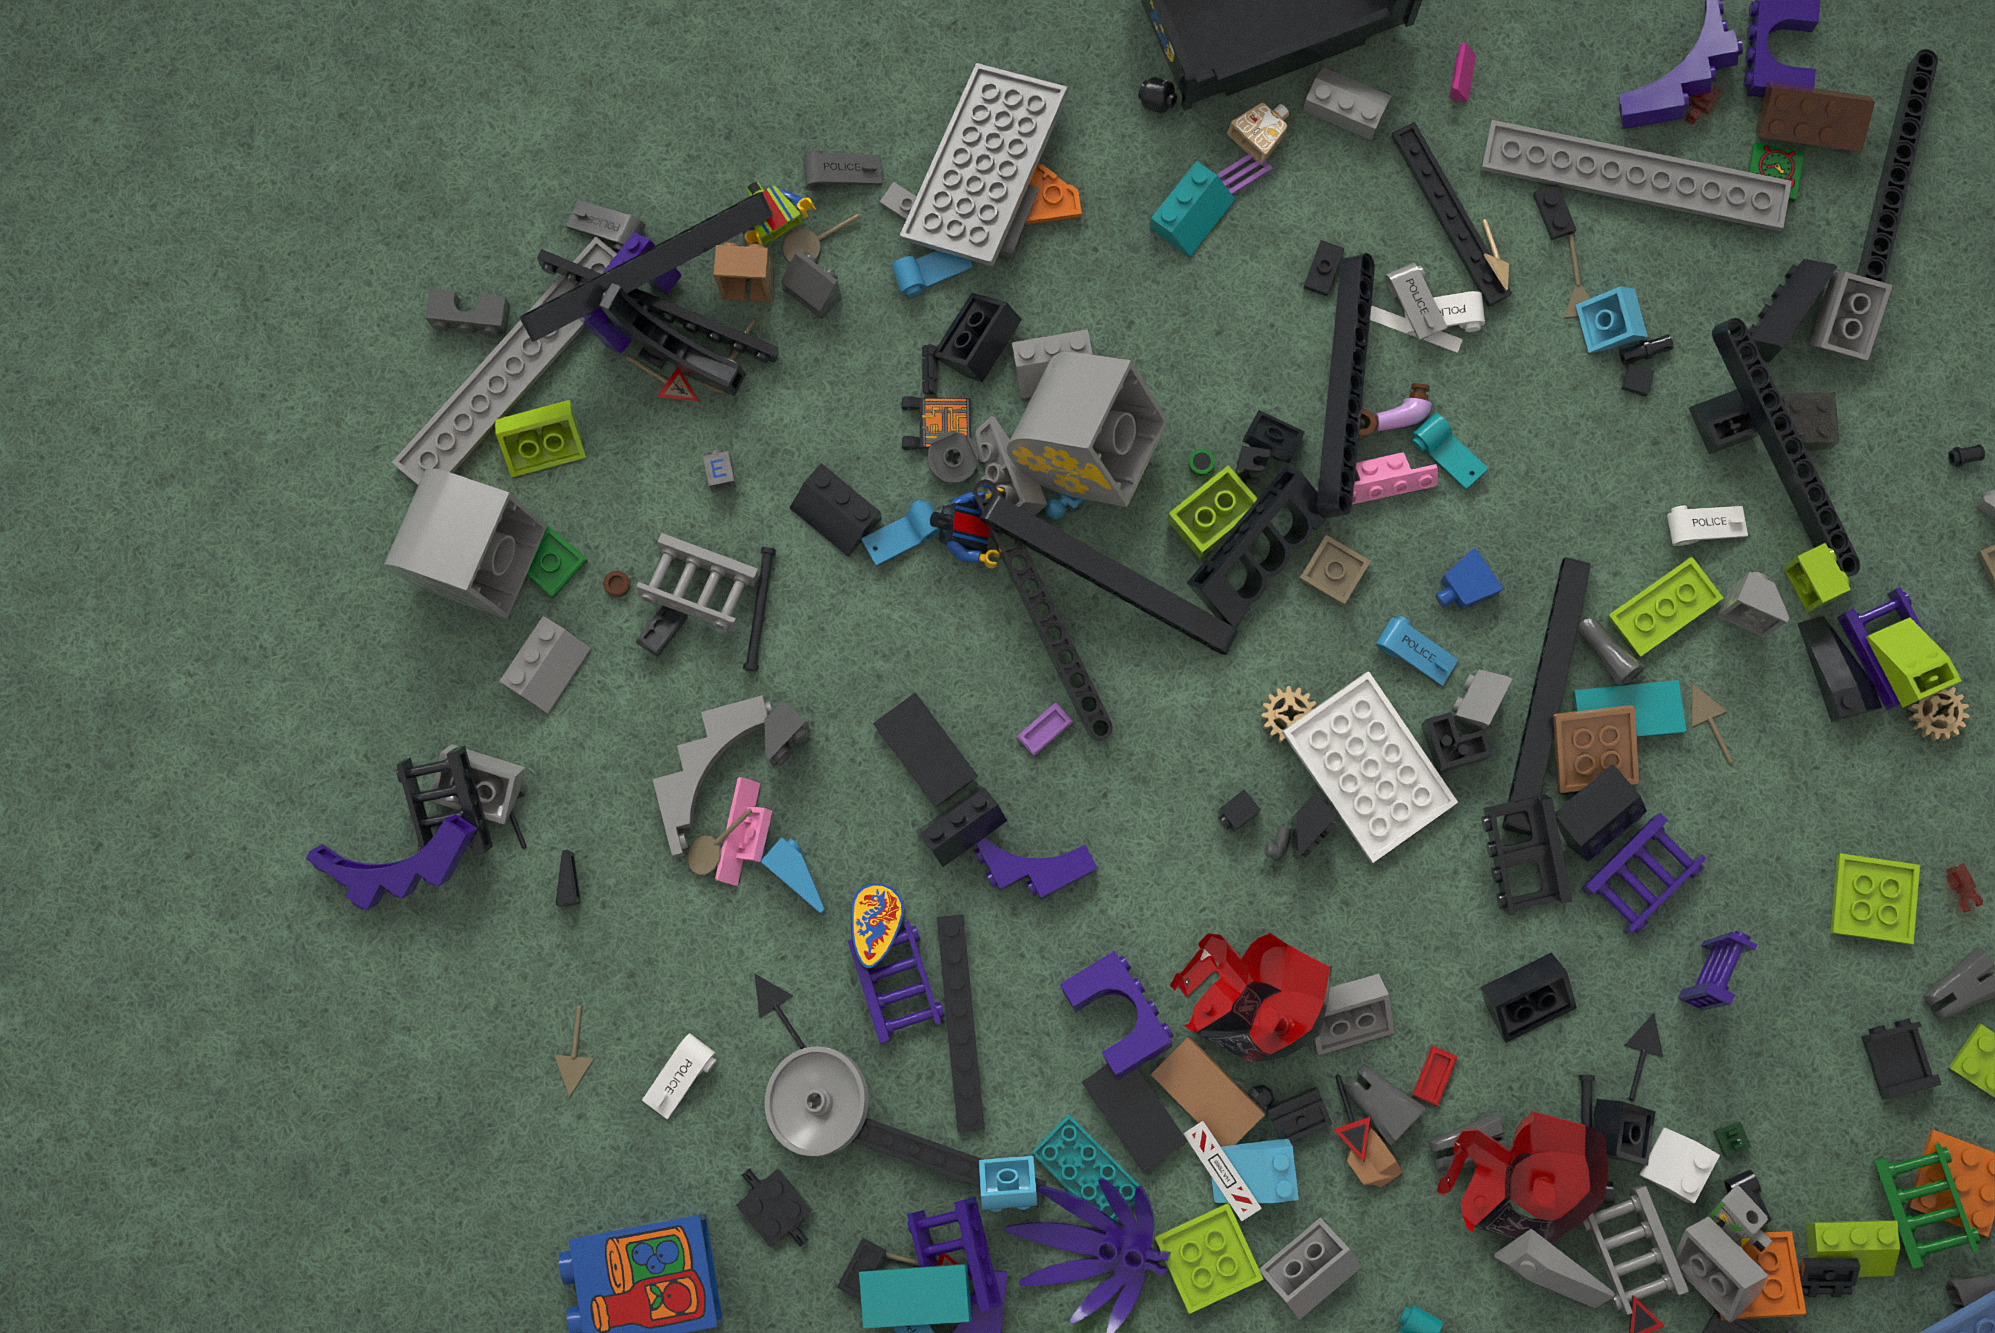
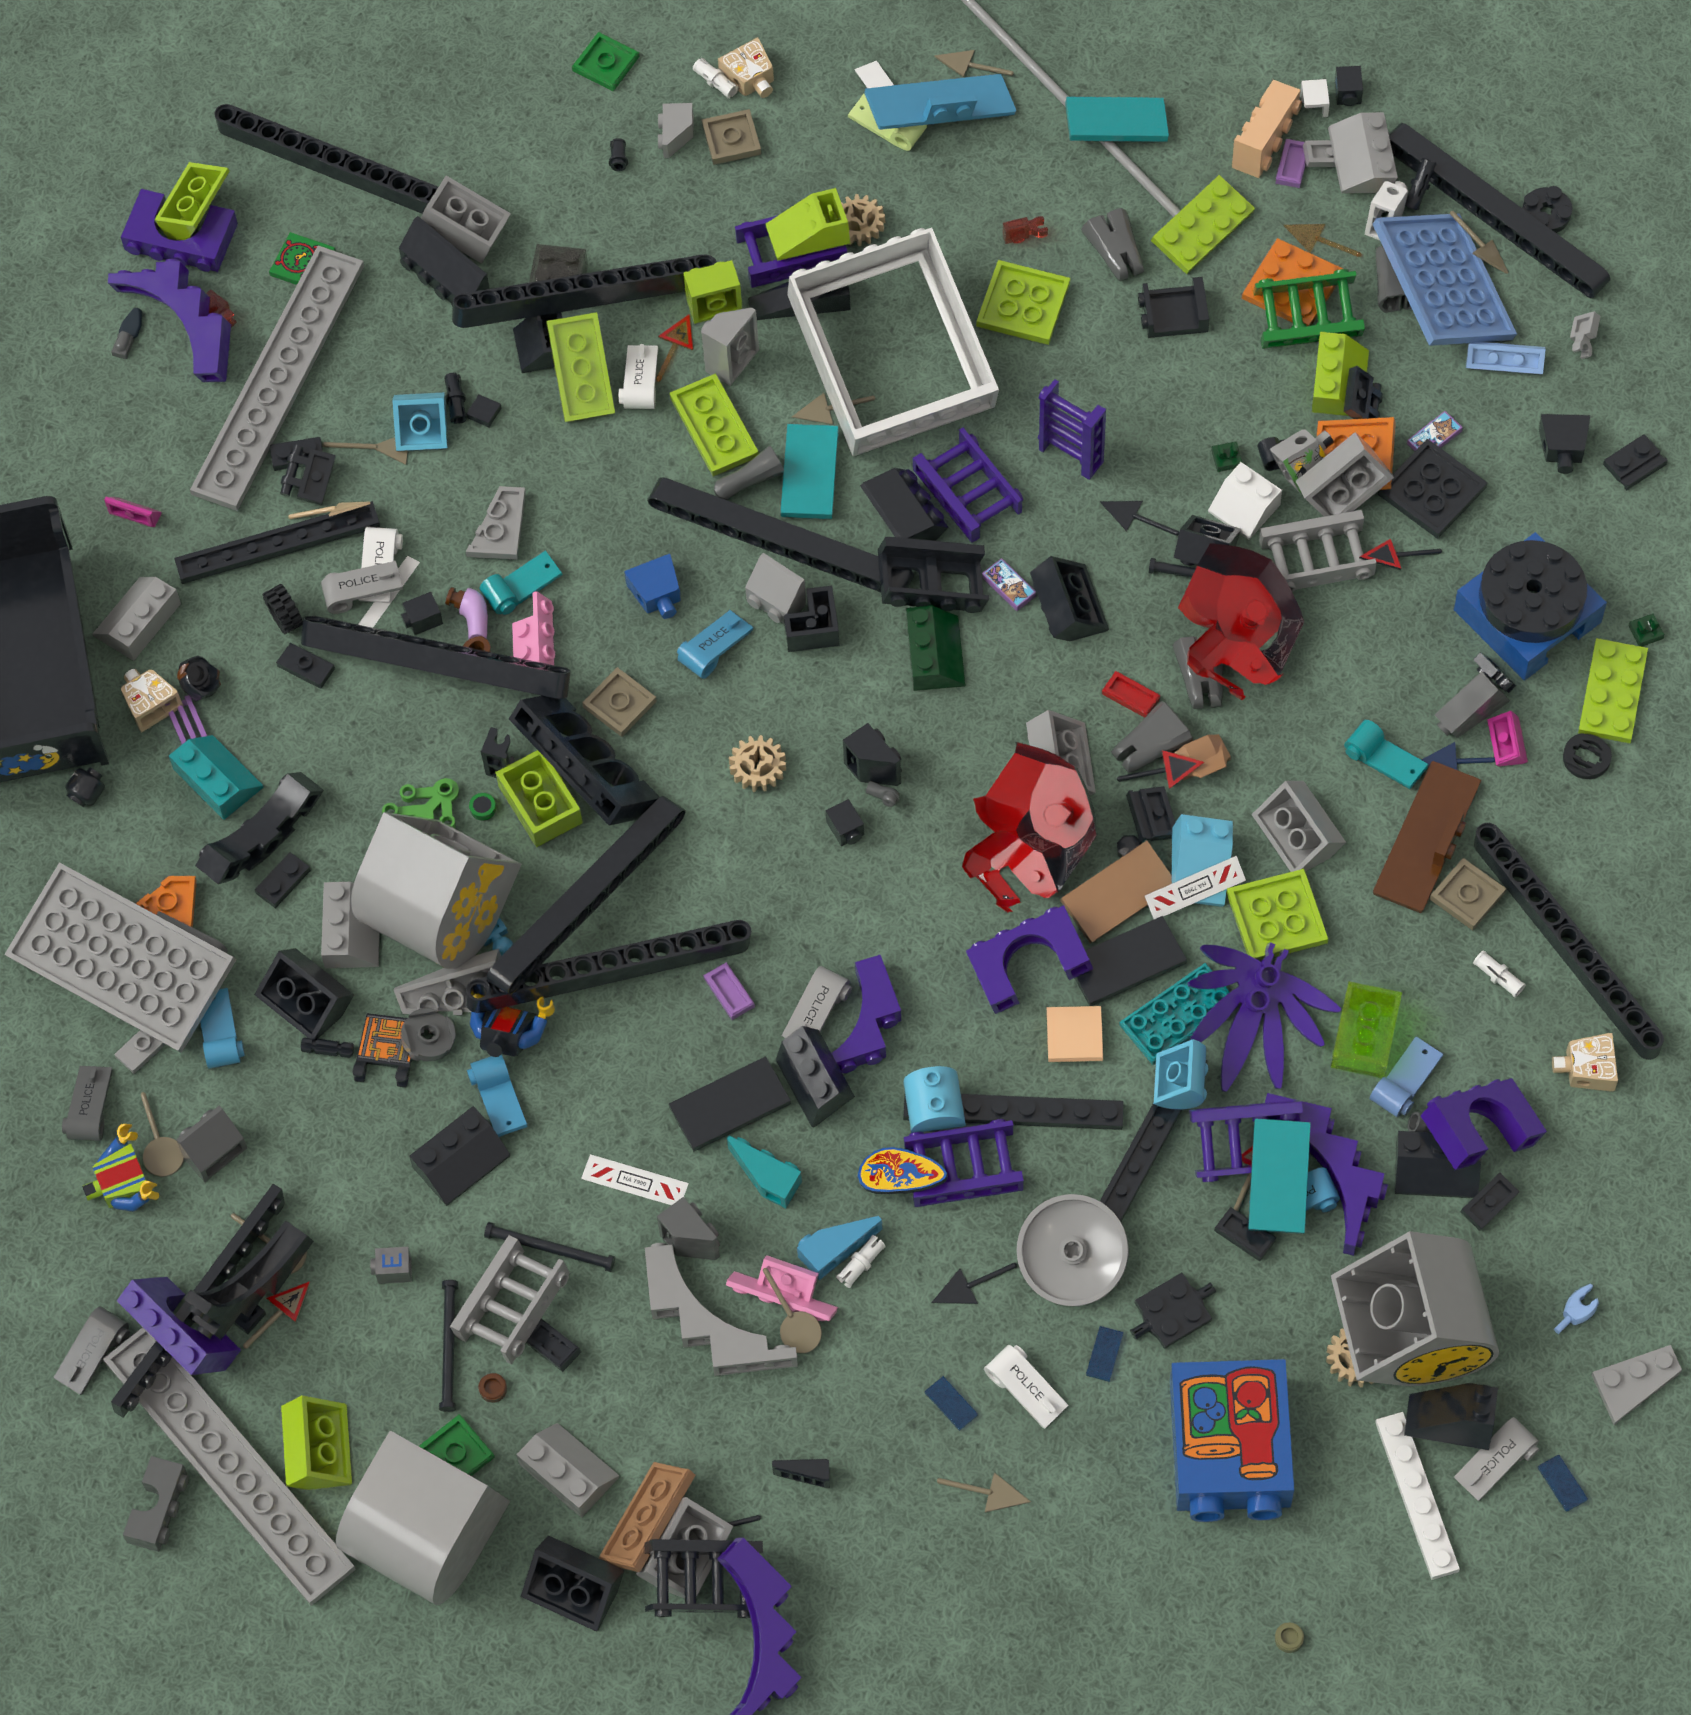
camera: 80 degrees left, 15 degrees down
(438, 689) = (571, 1582): none -> black slope
(504, 744) = (647, 1515): none -> medium nougat tile
(646, 537) = (447, 1403): none -> black bar
(647, 265) = (162, 1285): black beam -> none
(655, 1007) = (951, 1403): none -> clear blue piece
(723, 1146) = (1104, 1353): none -> clear blue piece
(738, 263) = (186, 1193): medium nougat piece -> none
(784, 900) = (861, 1261): none -> white pin
(838, 675) = (634, 1180): none -> white sticker
(855, 799) = (770, 1176): none -> teal slope
(950, 945) = (934, 1099): none -> medium azure brick
(1040, 815) = (818, 1000): none -> light grey door
(1048, 1071) = (1074, 1034): none -> light nougat slope
(1094, 294) = (282, 880): none -> black plate
(1134, 261) = (263, 832): none -> black brick
(1184, 409) = (437, 798): none -> bright green plant
(1274, 435) = (472, 731): black plate -> none
(1288, 171) = (198, 678): none -> black hair
(1369, 767) = (822, 697): white plate -> none
(1374, 232) = (282, 609): none -> black tyre
(1396, 364) = (421, 613): none -> black brick
(1448, 869) = (934, 648): none -> dark green slope
(1506, 421) = (501, 528): none -> light grey wing
(1529, 233) = (315, 477): none -> black plate
(1537, 933) = (1009, 584): none -> tile
(1549, 1267) = (1323, 622): light grey wedge -> none
(1592, 742) = (837, 503): medium nougat plate -> none
(1659, 26) = (127, 333): none -> piece
(1698, 462) = (580, 367): none -> lime plate
(1764, 554) = (679, 335): none -> piece
(1815, 116) = (259, 213): reddish brown brick -> none
(1817, 47) = (190, 200): none -> lime slope
(1861, 712) = (872, 261): none -> white door

